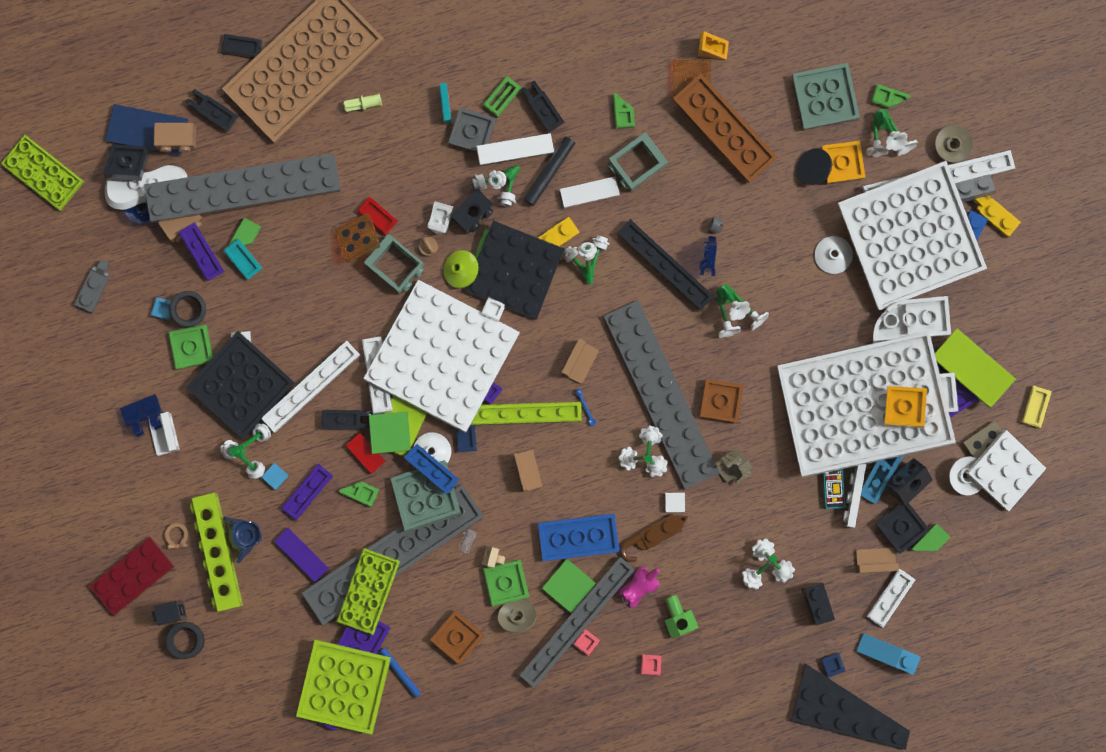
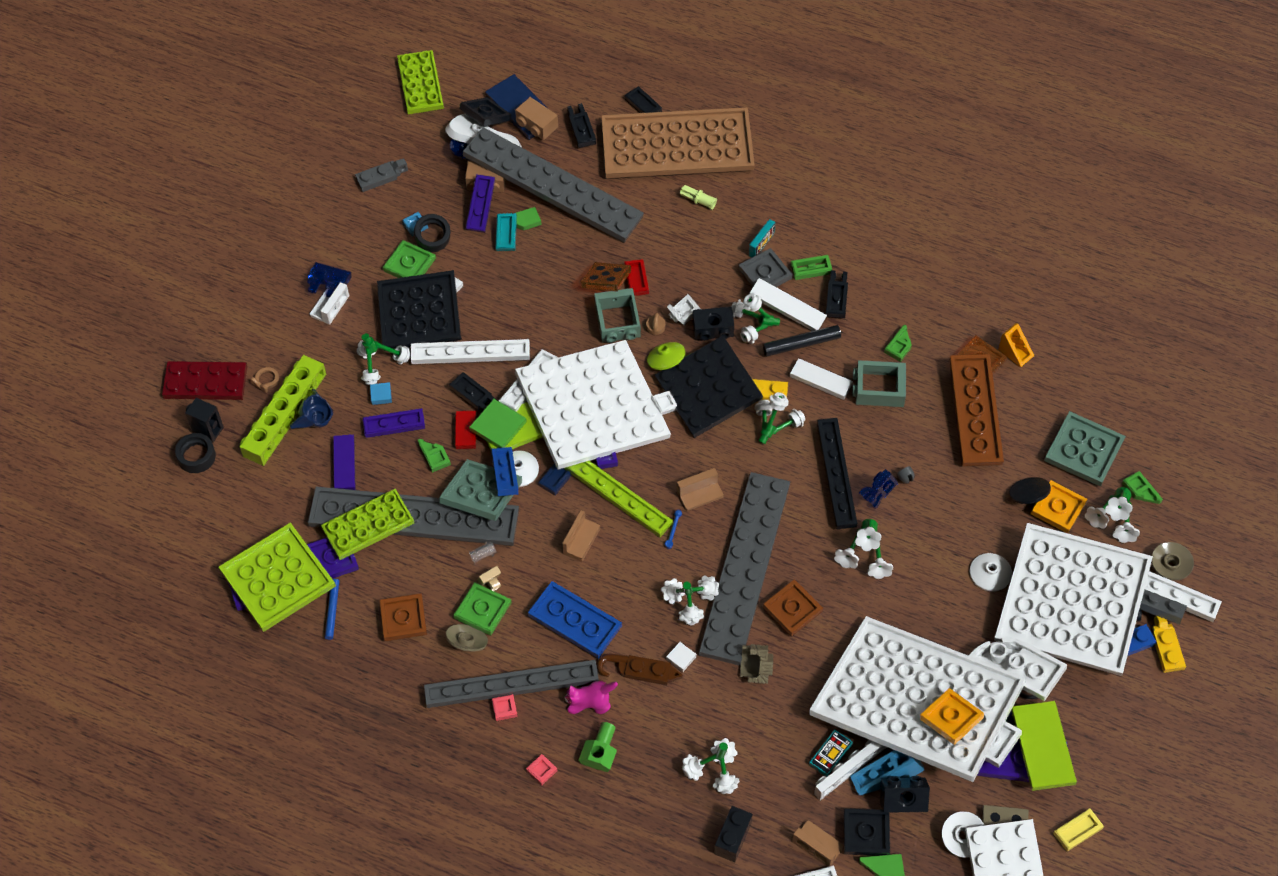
camera: 40 degrees right, 25 degrees down
(569, 586) = (531, 649): bright green tile -> none

